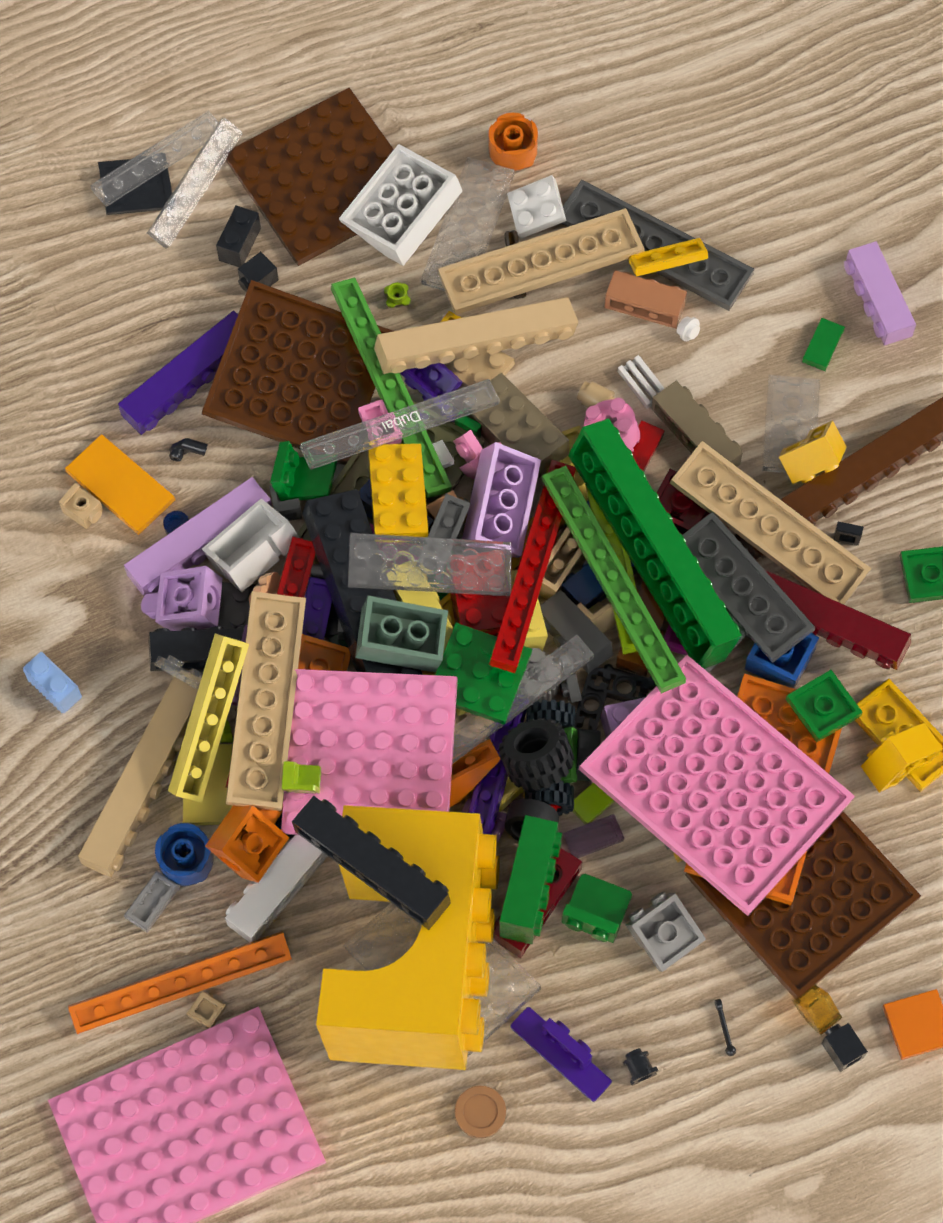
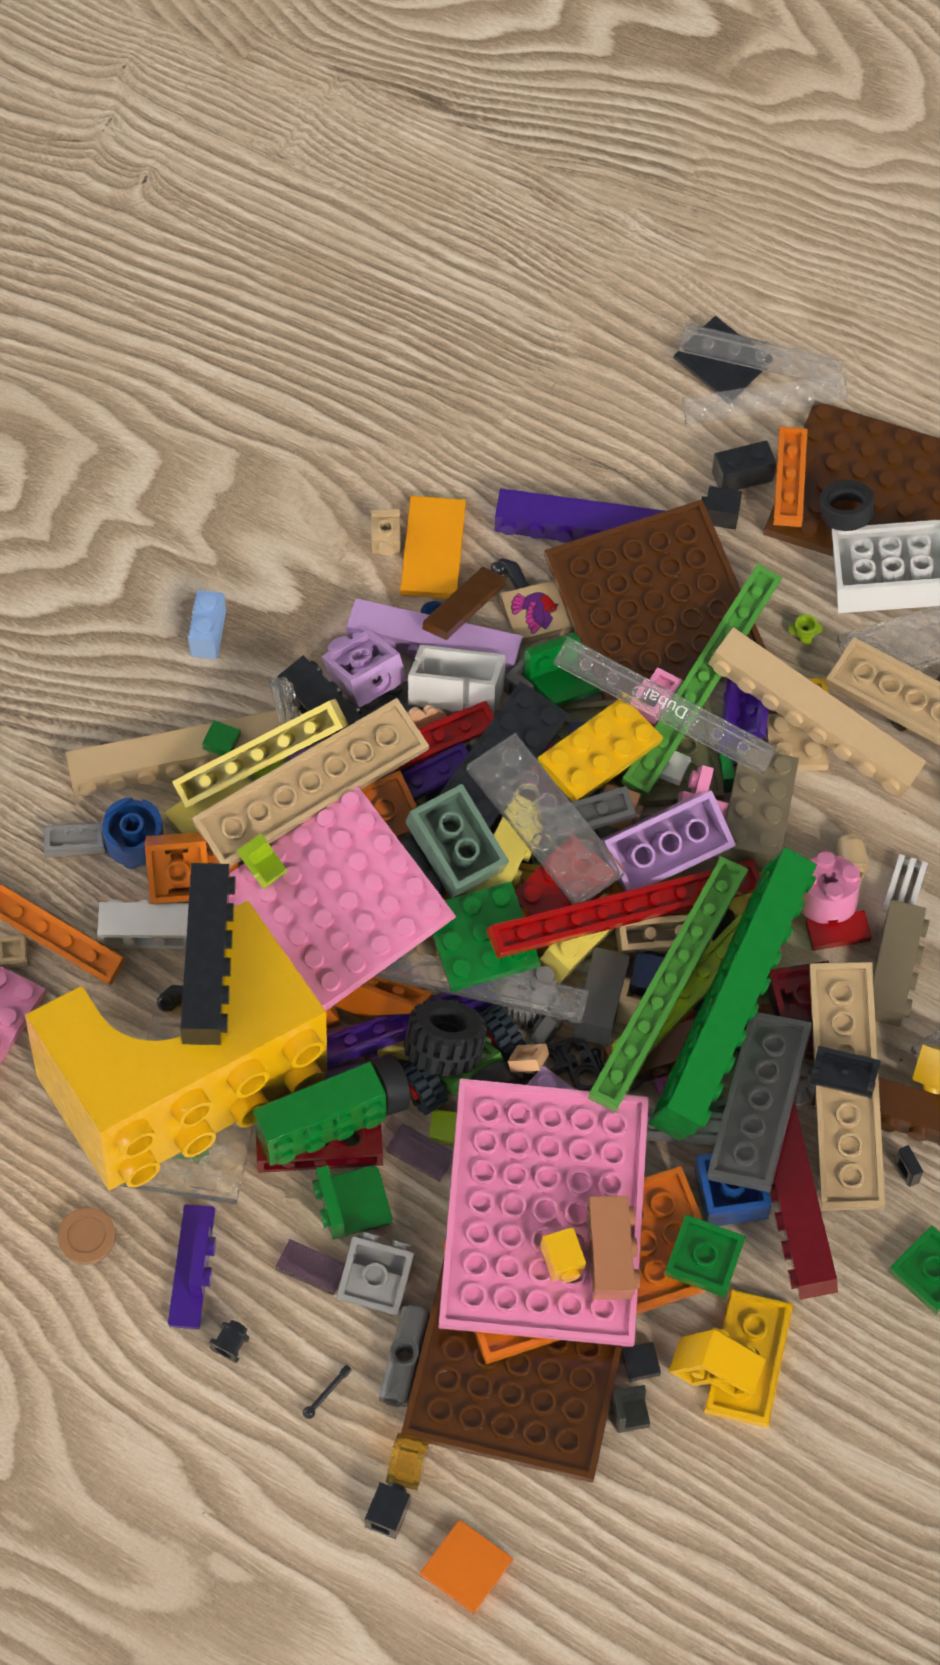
camera: 50 degrees right, 5 degrees down
(163, 738) = (221, 738): none -> green tile
(191, 496) = (464, 603): none -> reddish brown tile
(233, 455) = (535, 612): none -> tan tile
(276, 213) = (790, 476): none -> orange plate
(324, 182) = (850, 519): none -> black tyre
(337, 917) = (170, 998): none -> black arm
(591, 711) = (528, 1058): none -> light nougat plate
(622, 972) = (310, 1267): none -> tile
(728, 942) = (399, 1373): none -> dark grey piece
(765, 794) = (563, 1255): none -> yellow brick
(766, 518) = (845, 1072): none -> black hinge
(782, 758) = (612, 1248): none -> nougat brick
(859, 806) = (641, 1362): none -> black tile
(888, 837) = (630, 1409): none -> pearl dark grey panel

